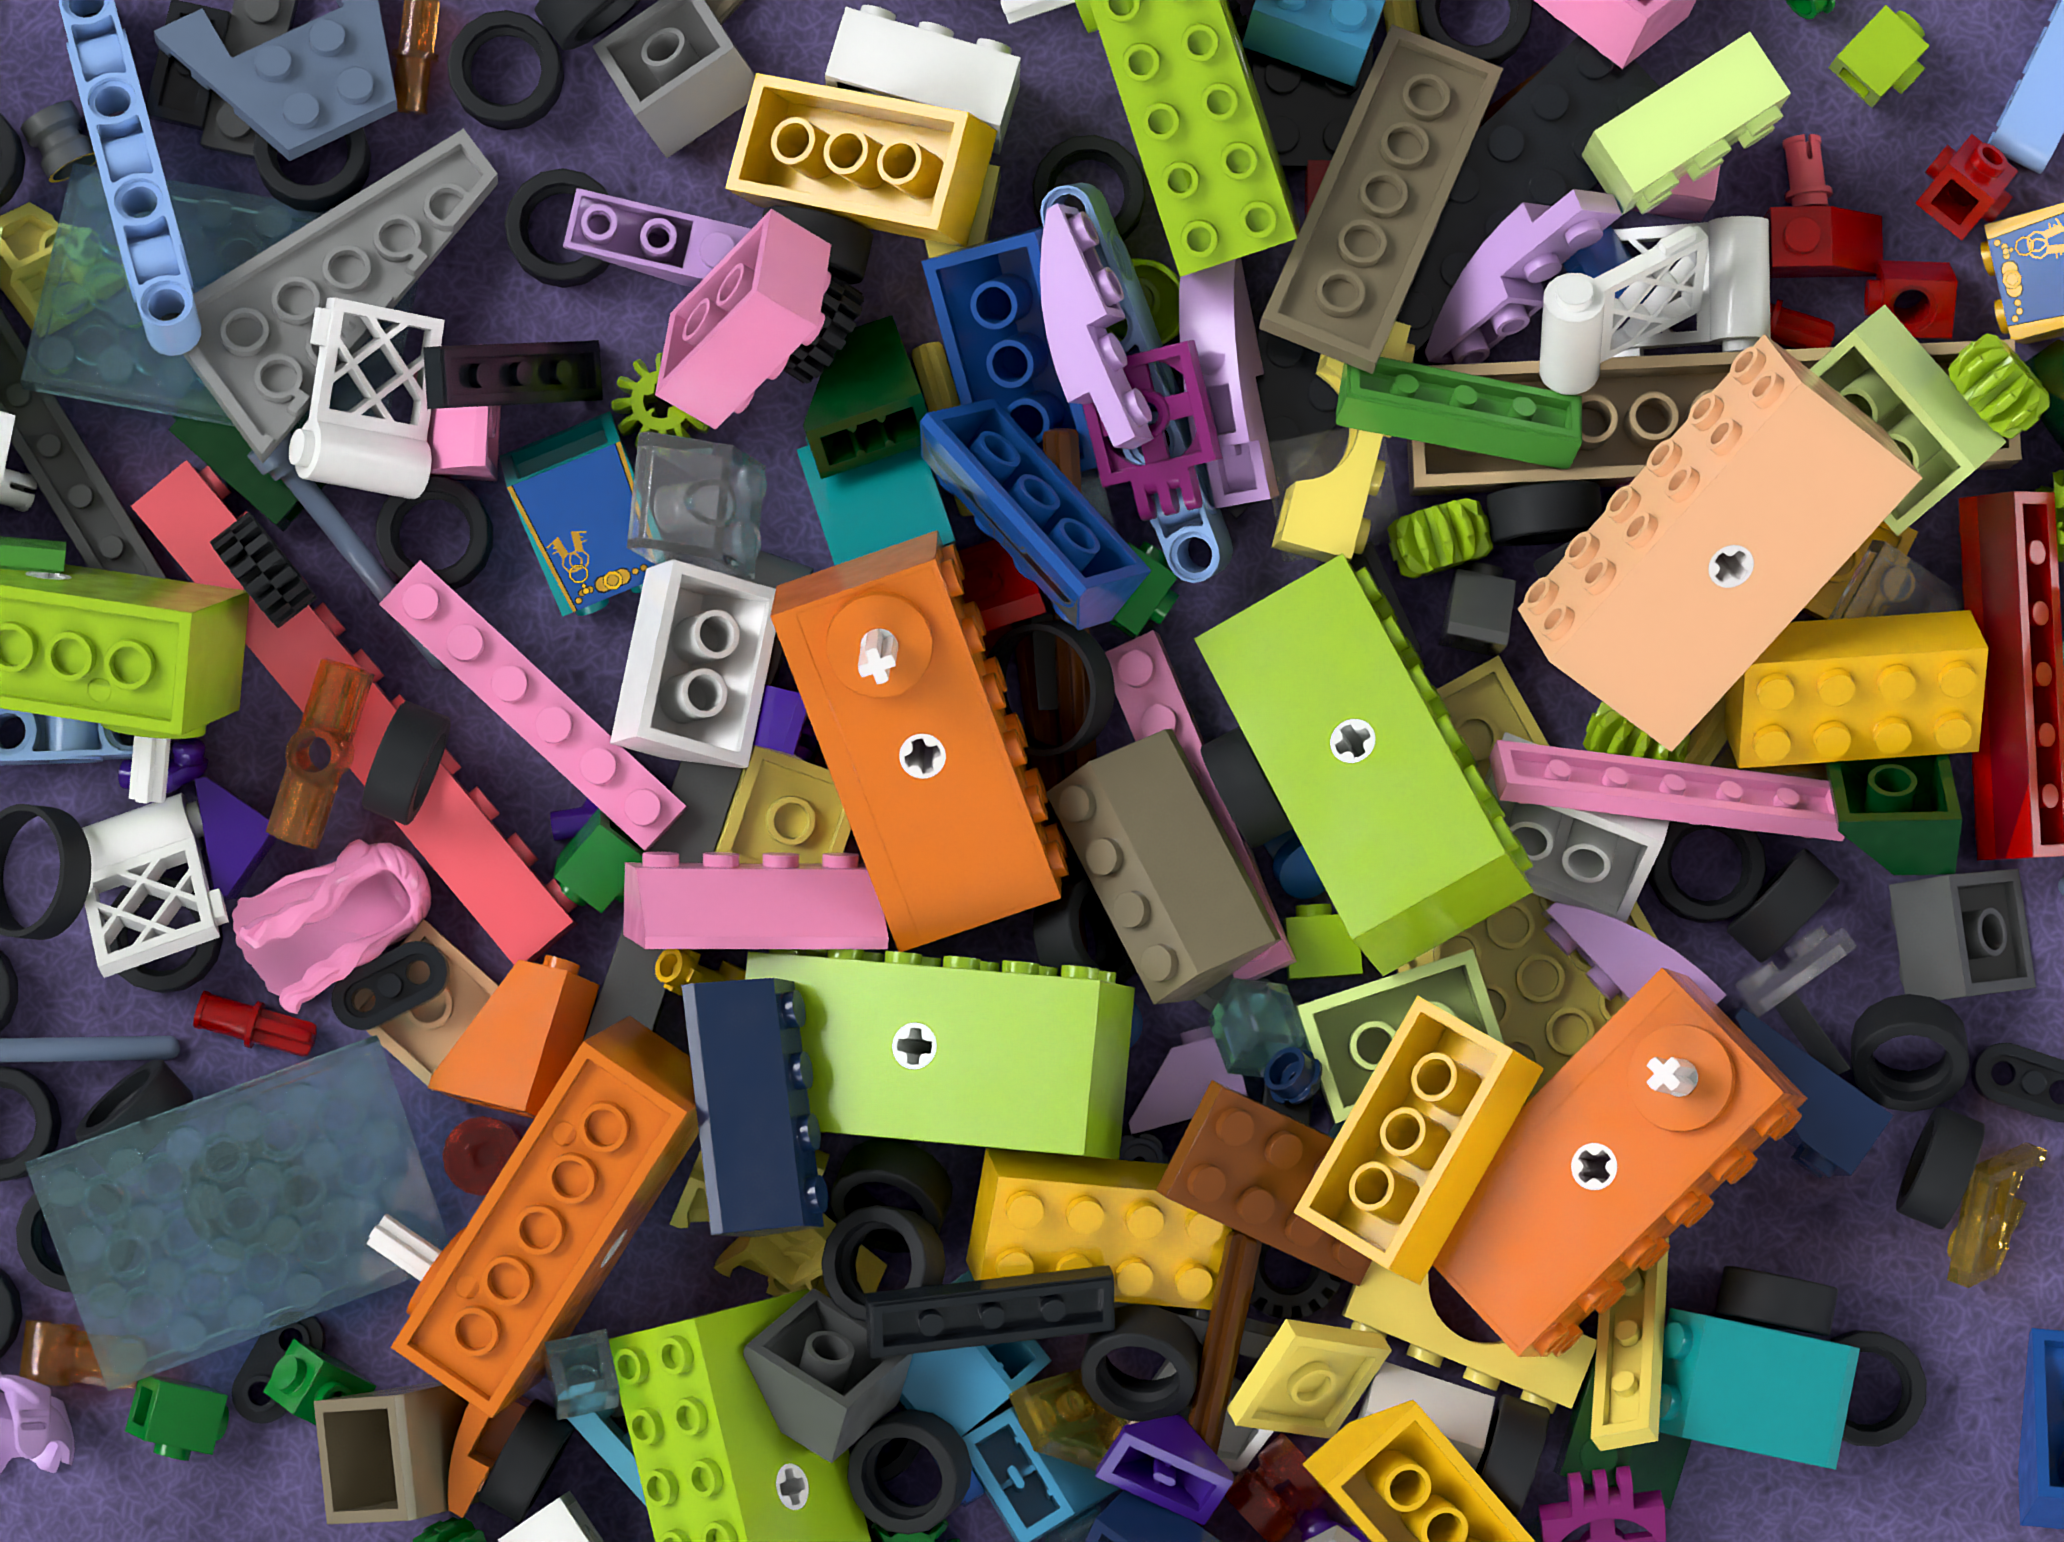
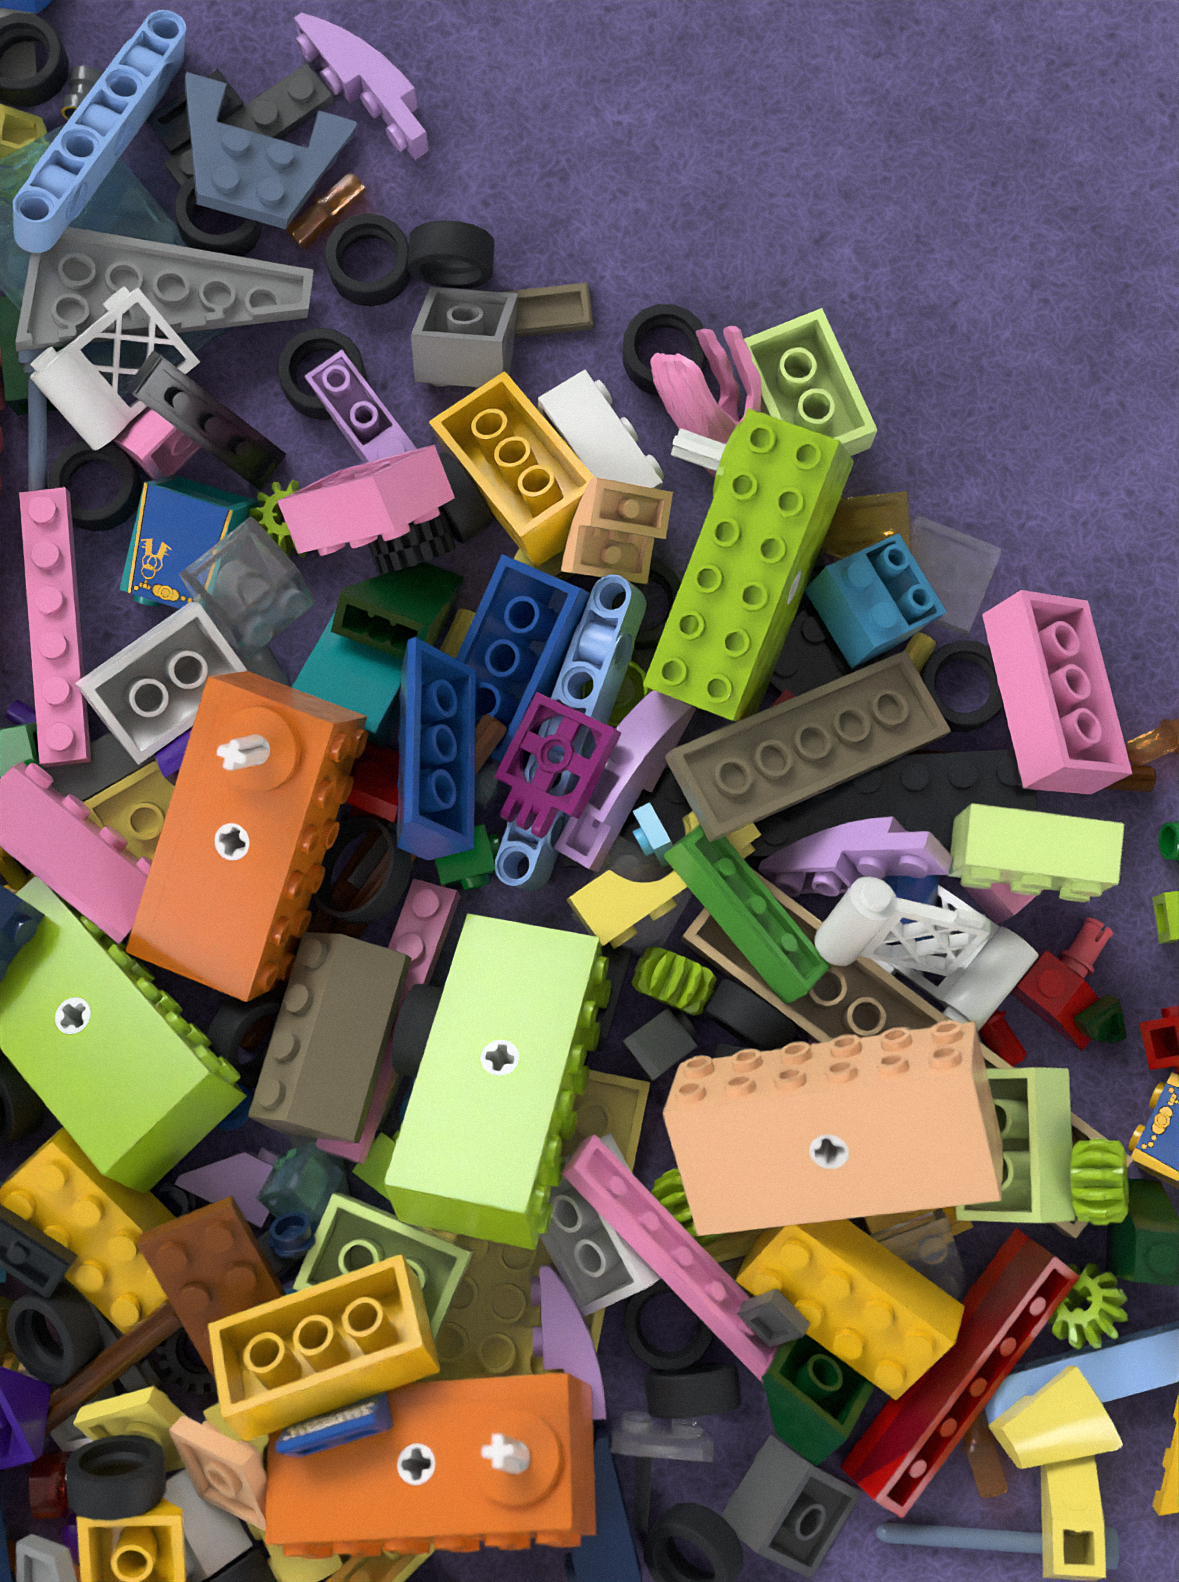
camera: 40 degrees right, 5 degrees down
(1017, 144) = (616, 530): none -> light nougat slope
(1077, 306) = (565, 654): lavender slope -> none
(1303, 414) = (651, 833): none -> medium azure plate
(1324, 1428) = (116, 1477): none -> black tyre
(1421, 1337) = (223, 1469): none -> light nougat plate
(1494, 1197) = (337, 1427): none -> blue slope
(1803, 770) = (773, 1318): none -> dark grey tile
(1879, 230) = (1102, 1021): none -> dark green tile
(1935, 311) = (1097, 1099): red brick -> none

